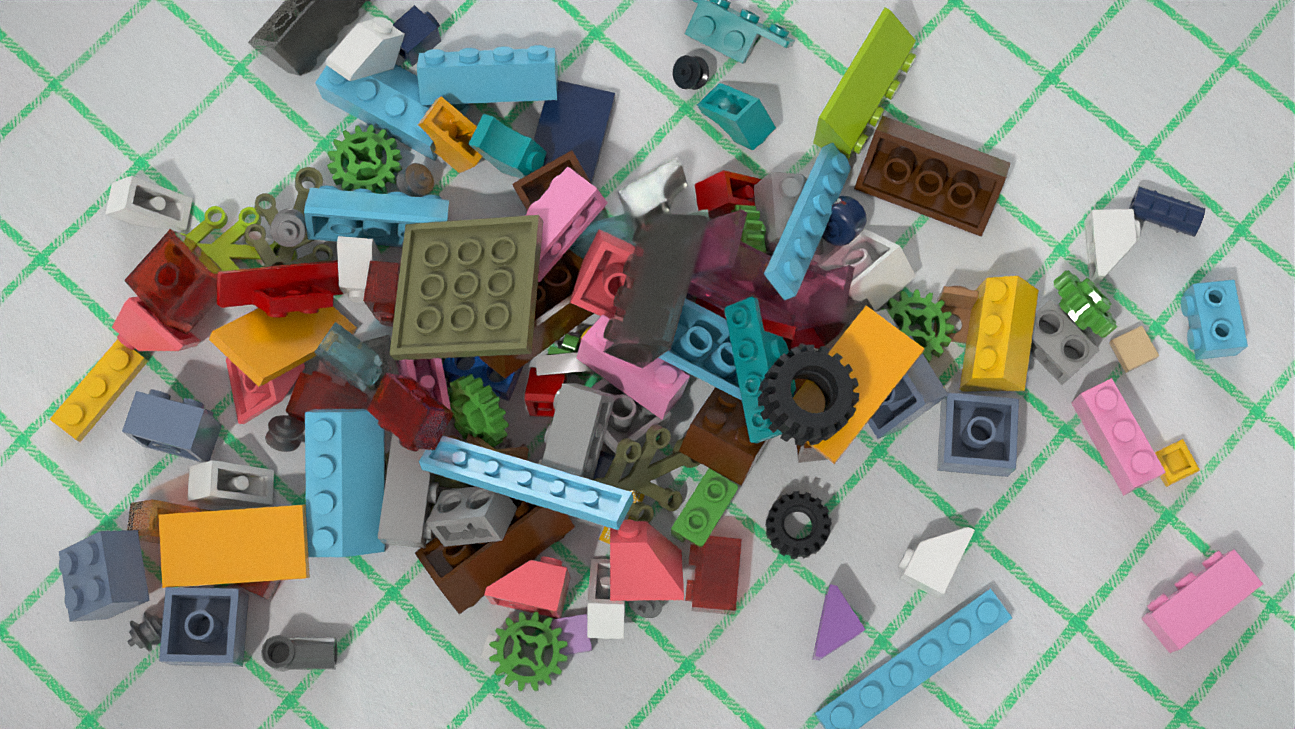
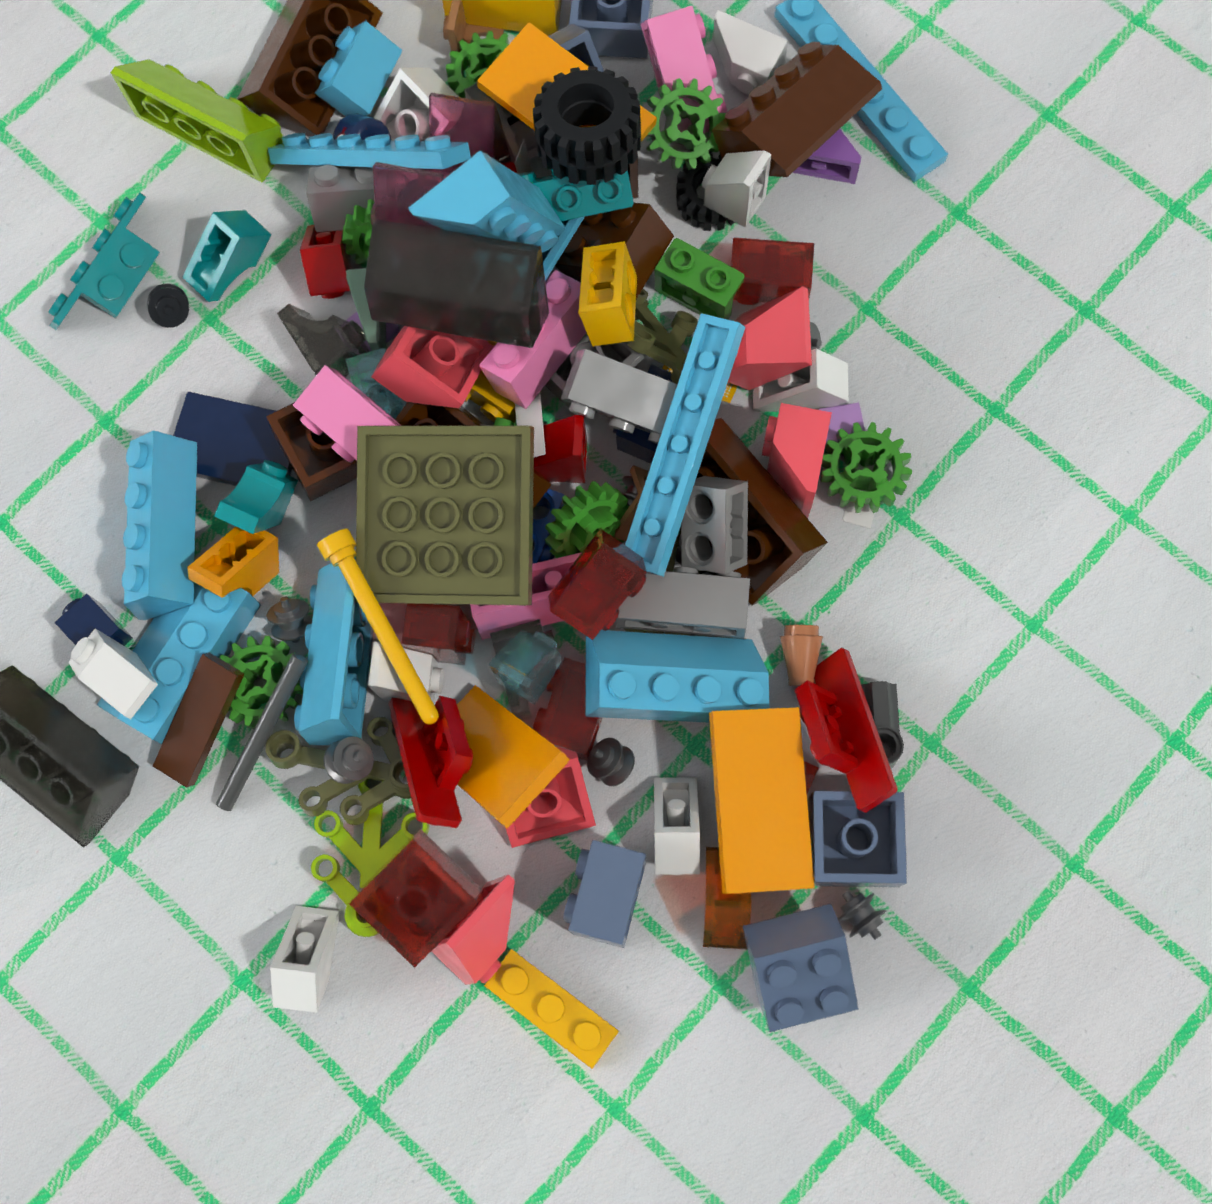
camera: 85 degrees left, 0 degrees up
(289, 614) = (845, 731): none -> red bracket
(321, 164) = (262, 731): none -> dark grey bar
(333, 116) = (198, 719): none -> reddish brown tile
(369, 591) = (801, 652): none -> nougat cone
(440, 209) = (340, 551): none -> yellow piece
(659, 417) = (608, 294): none -> yellow brick
(703, 313) = (491, 203): none -> medium azure slope
(783, 537) = (737, 185): none -> white slope
(831, 501) = (675, 110): none -> bright green gear
(861, 596) = (798, 107): none -> reddish brown slope
(903, 496) = (678, 52): none -> bright pink brick
(910, 214) = (358, 70): none -> medium azure brick

